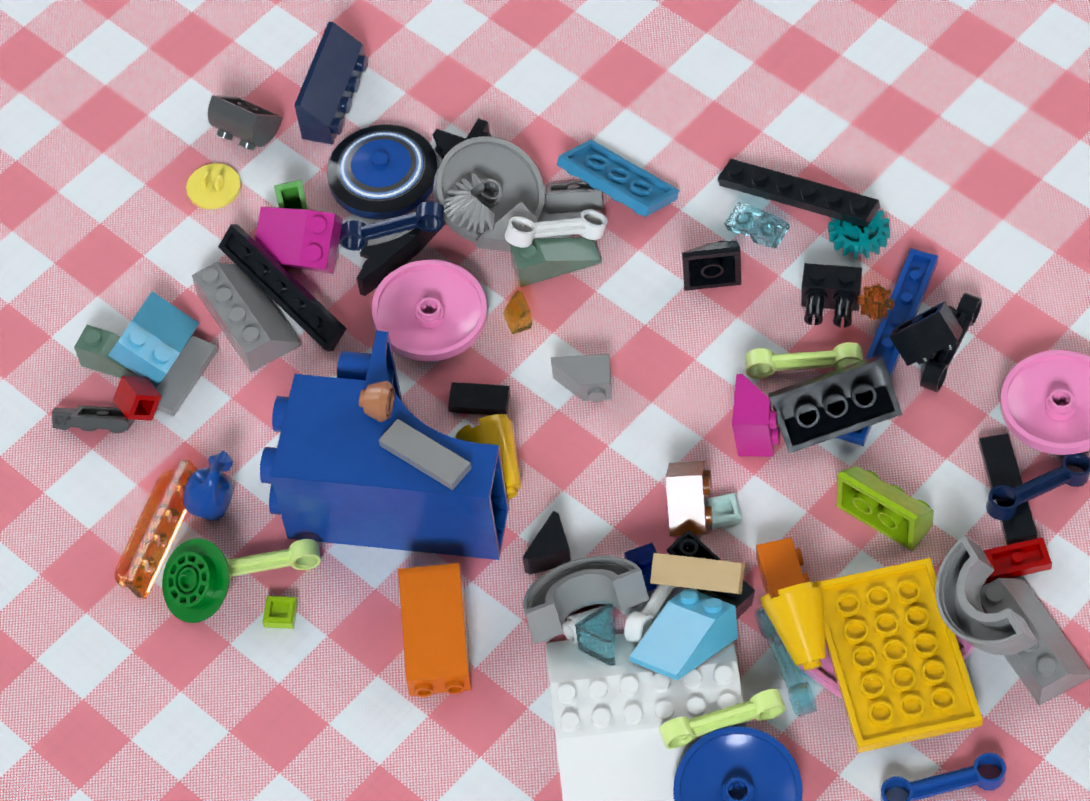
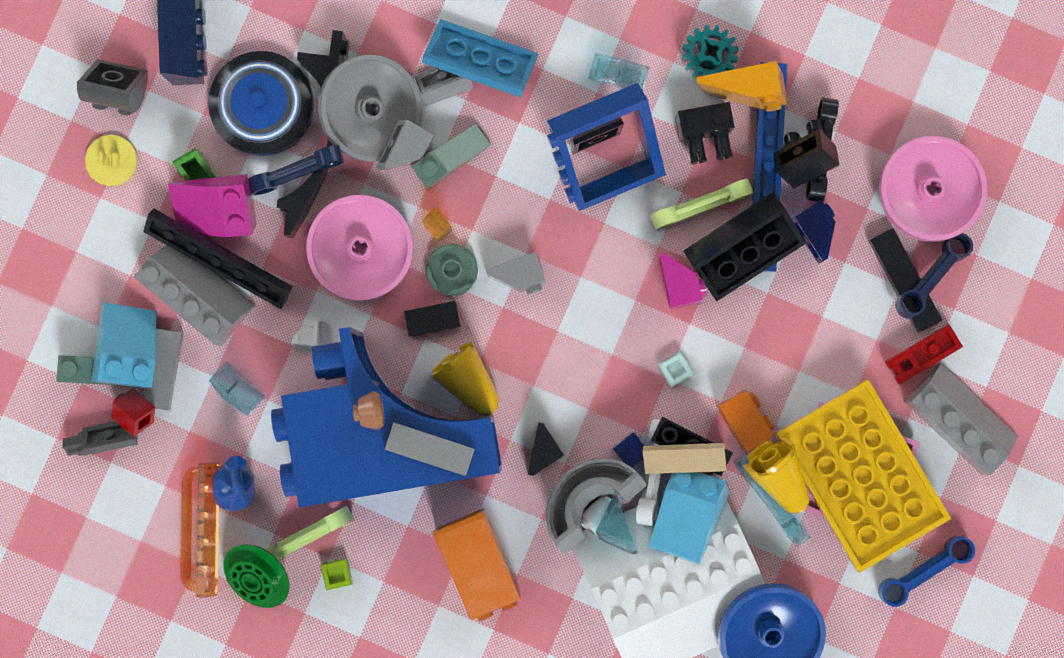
camera: 25 degrees left, 30 degrees up
(250, 412) = (236, 389): none -> clear light blue slope
(466, 208) = (361, 143): light grey hair -> none
(517, 361) = (452, 270): none -> sand green tile
(522, 231) = (445, 134): white piece -> none
(683, 730) = (719, 605): yellowish green piece -> none
(686, 497) = (648, 373): brick -> none
(707, 219) = (593, 115): none -> blue window
(799, 192) = (647, 31): black plate -> none
(875, 302) = (745, 137): clear orange gear -> none
(883, 506) = (813, 331): lime slope -> none
(885, 254) = (753, 86): none -> light orange slope
(921, 411) = (817, 229): none -> clear blue slope
(960, 607) = (918, 434): light grey brick -> none

